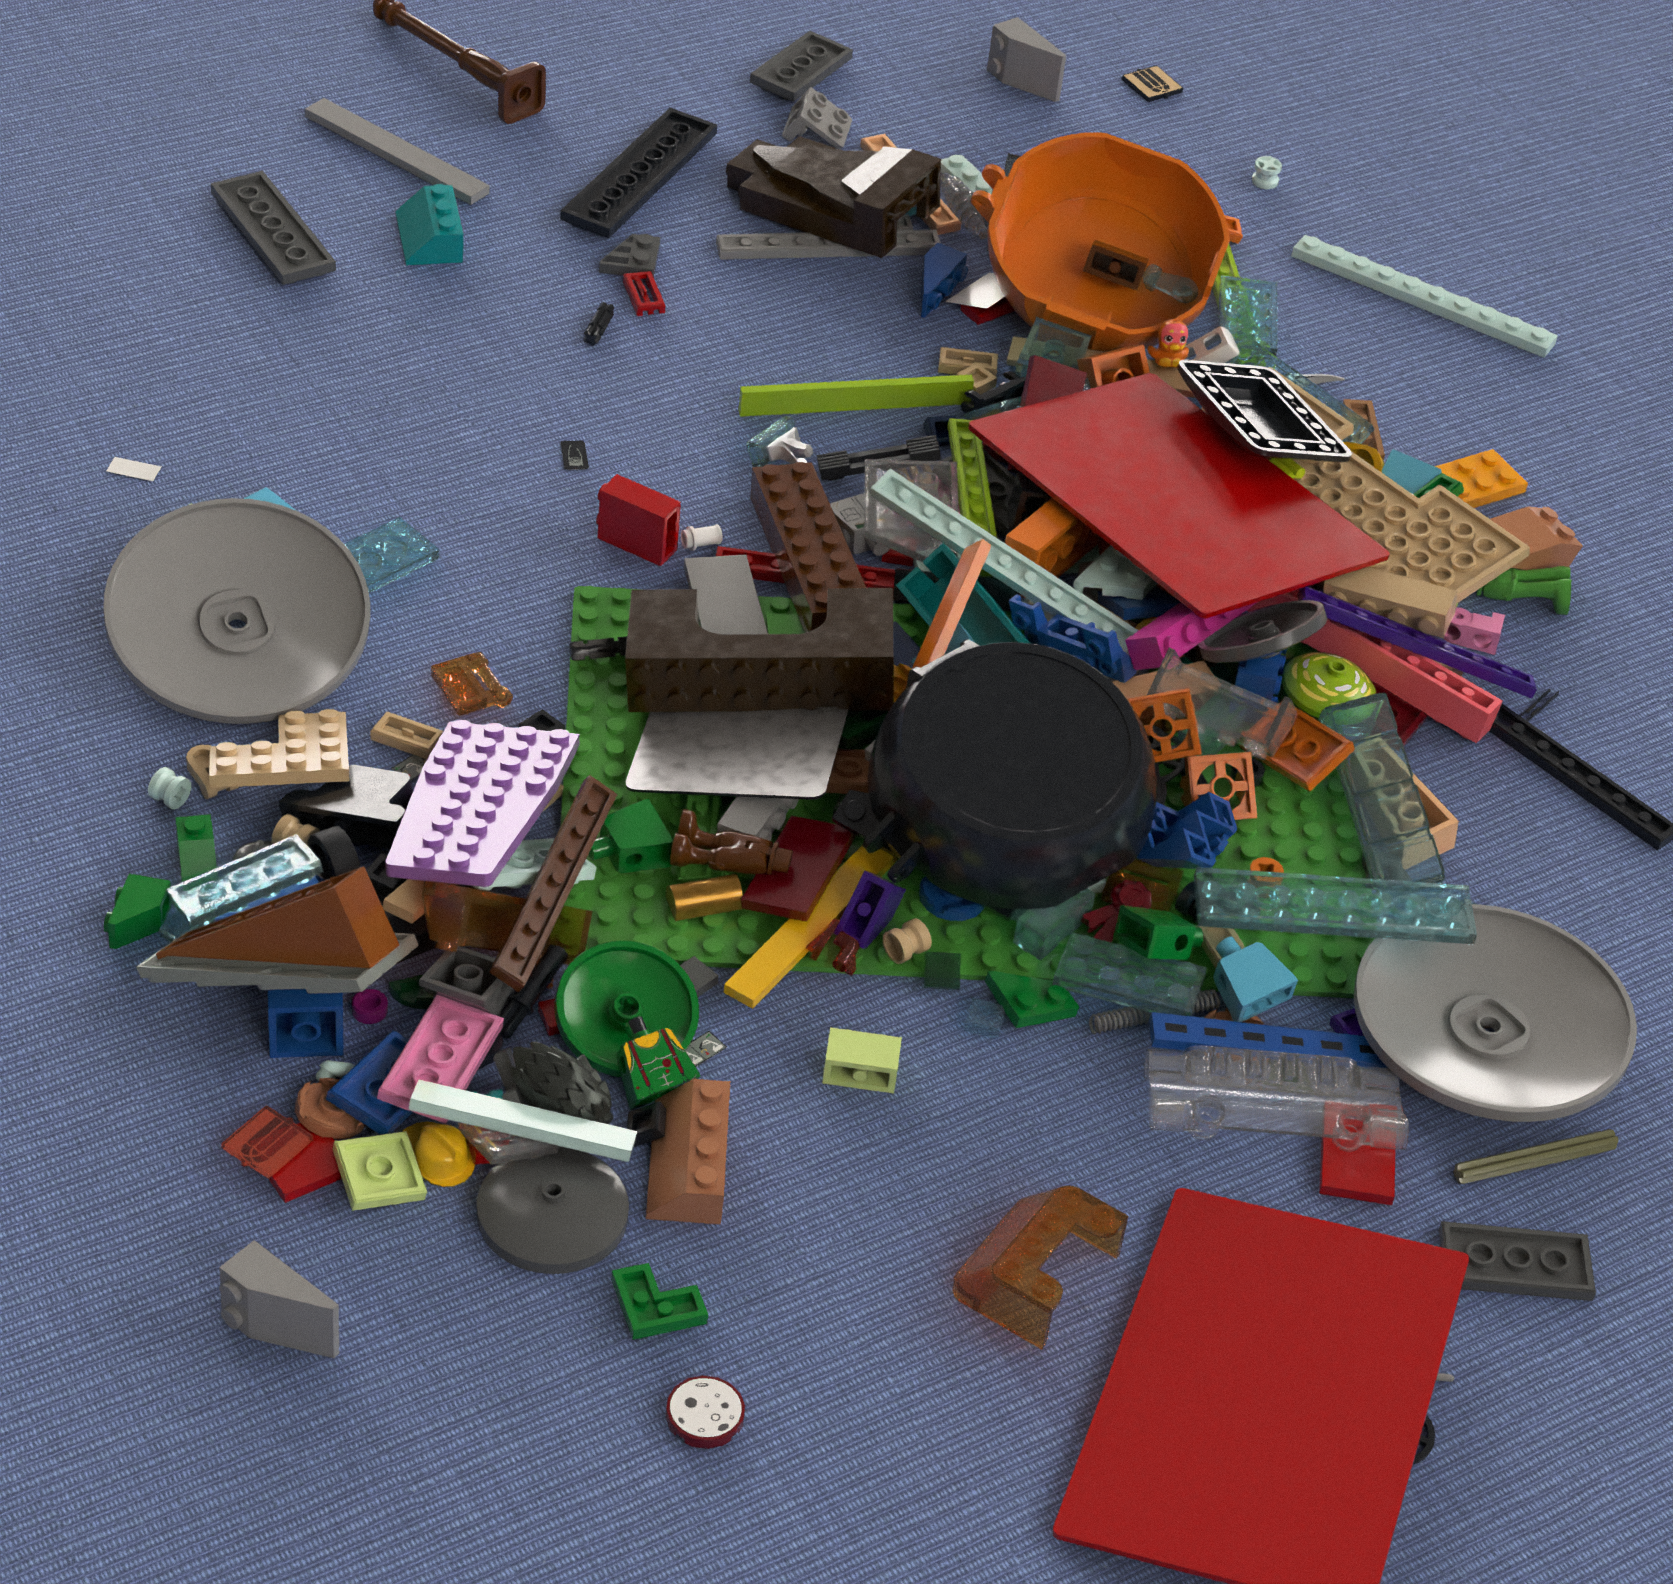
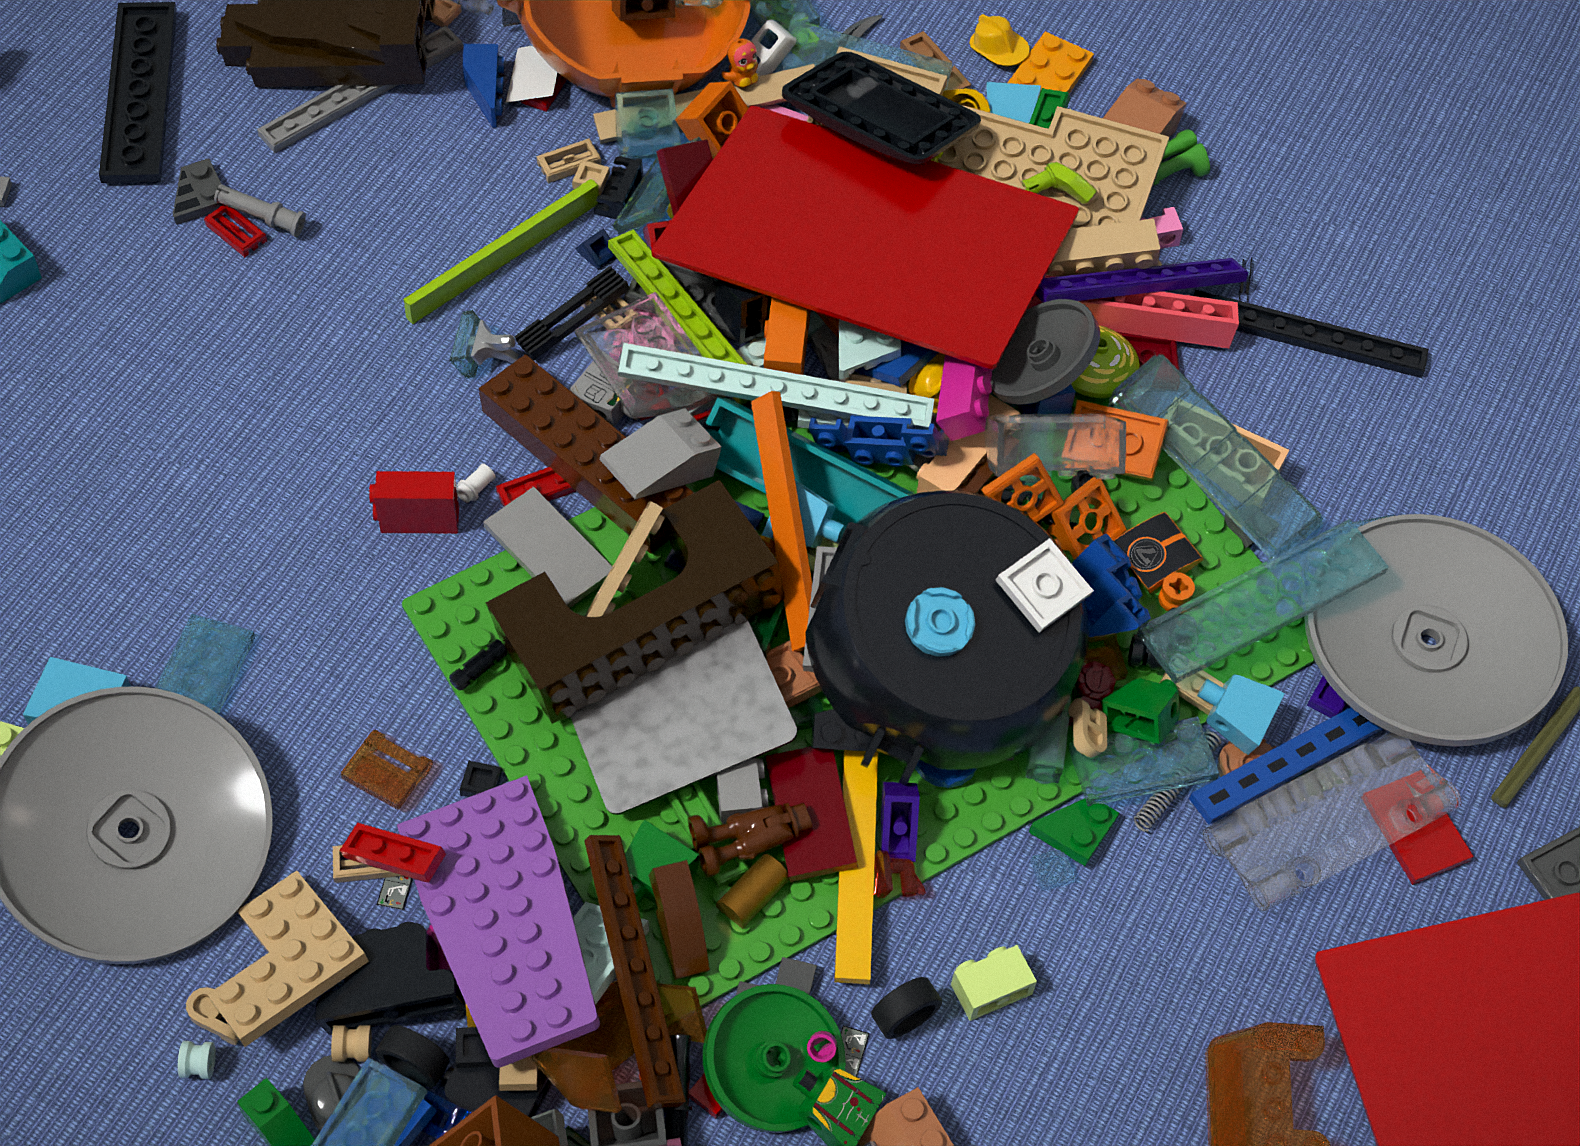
camera: 30 degrees left, 15 degrees up
(427, 725) = (393, 852): none -> red plate
(574, 455) = (296, 449): black sticker -> none
(599, 323) = (219, 286): black axle -> none
(622, 876) = (680, 919): none -> reddish brown slope
(672, 1011) = (824, 1053): none -> dark pink hinge
(681, 292) = (273, 214): none -> light grey pin
(765, 1014) = (906, 1007): none -> black tyre
(783, 608) = (632, 551): none -> tan plate
(865, 561) = (663, 455): none -> light grey slope
(904, 942) = (950, 836): tan wheel -> none
(942, 970) = (990, 843): clear green tile -> none
(990, 739) = (939, 622): none -> medium azure tile
(1090, 920) = (1088, 728): none -> tan plate
(1105, 756) = (1044, 585): none -> white plate
(1273, 837) = (1157, 550): none -> black slope
(1398, 534) = (1062, 178): none -> lime arm
(1440, 436) = (998, 41): none -> yellow piece

